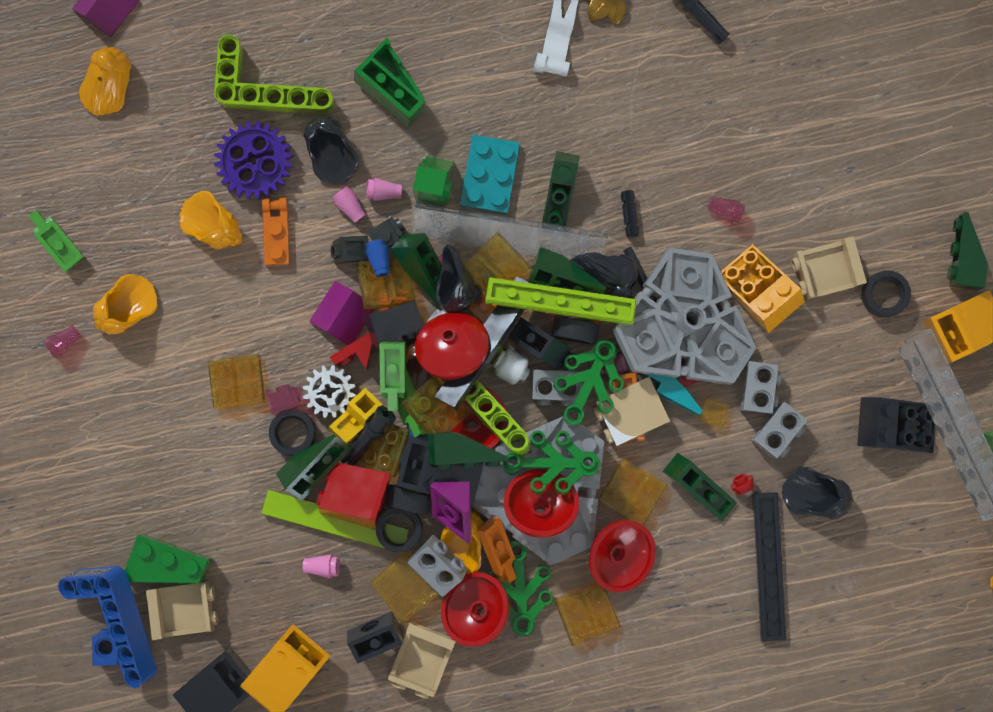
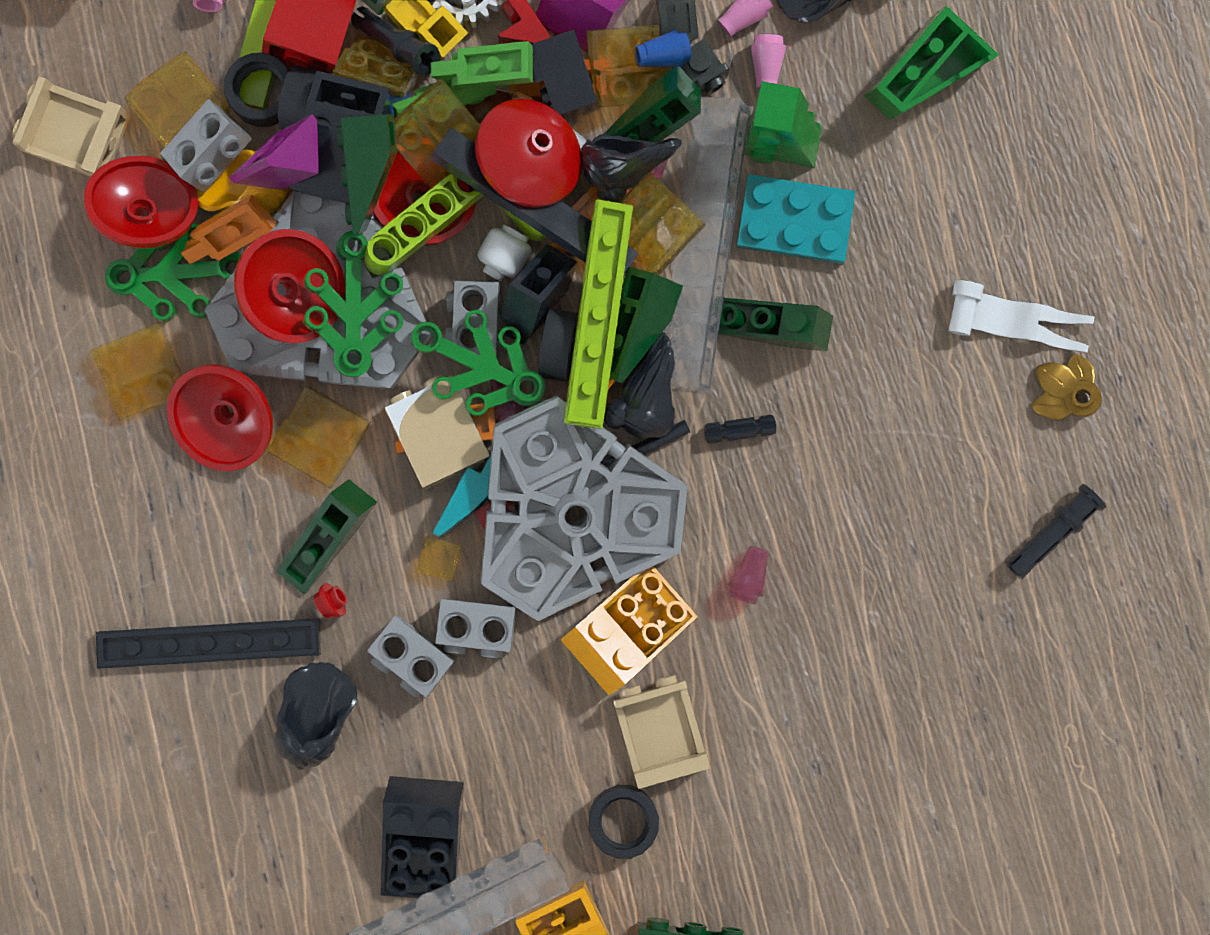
camera: 85 degrees right, 0 degrees up
(374, 637) = (101, 57): black brick -> none

